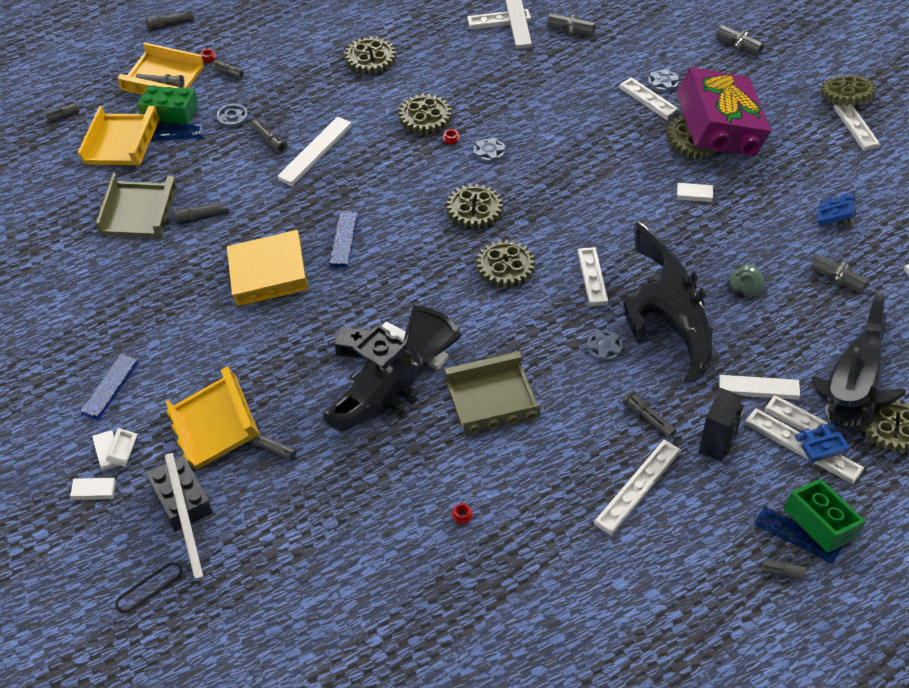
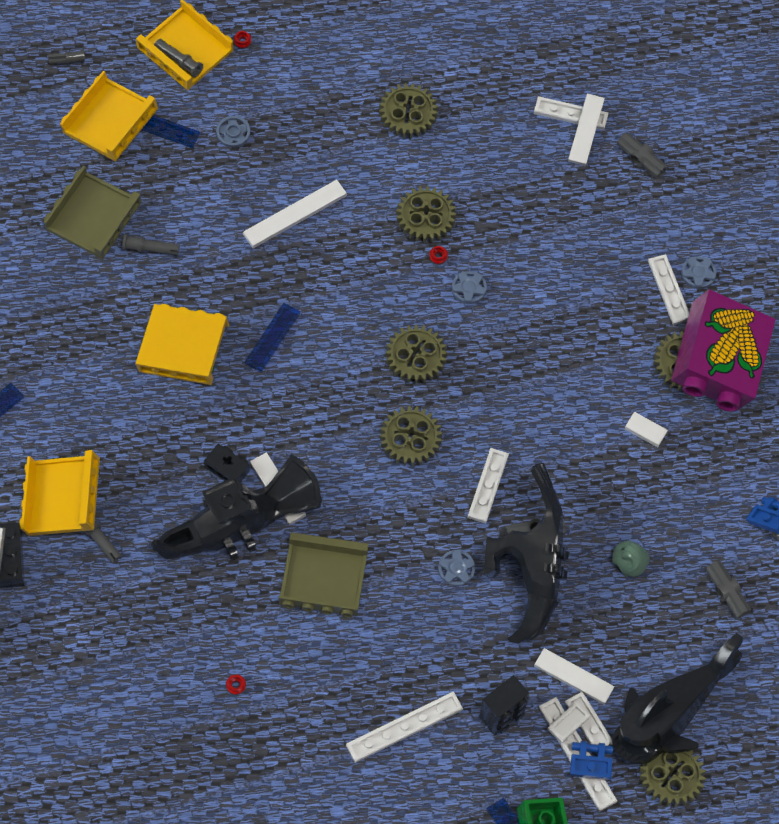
camera: 20 degrees right, 15 degrees up
(171, 103) = (174, 94): green brick -> none
(228, 69) = (254, 67): dark grey axle -> none
(272, 139) = (258, 182): dark grey pin -> none
(642, 408) = (452, 651): dark grey pin -> none
(781, 421) = (569, 722): none -> white tile

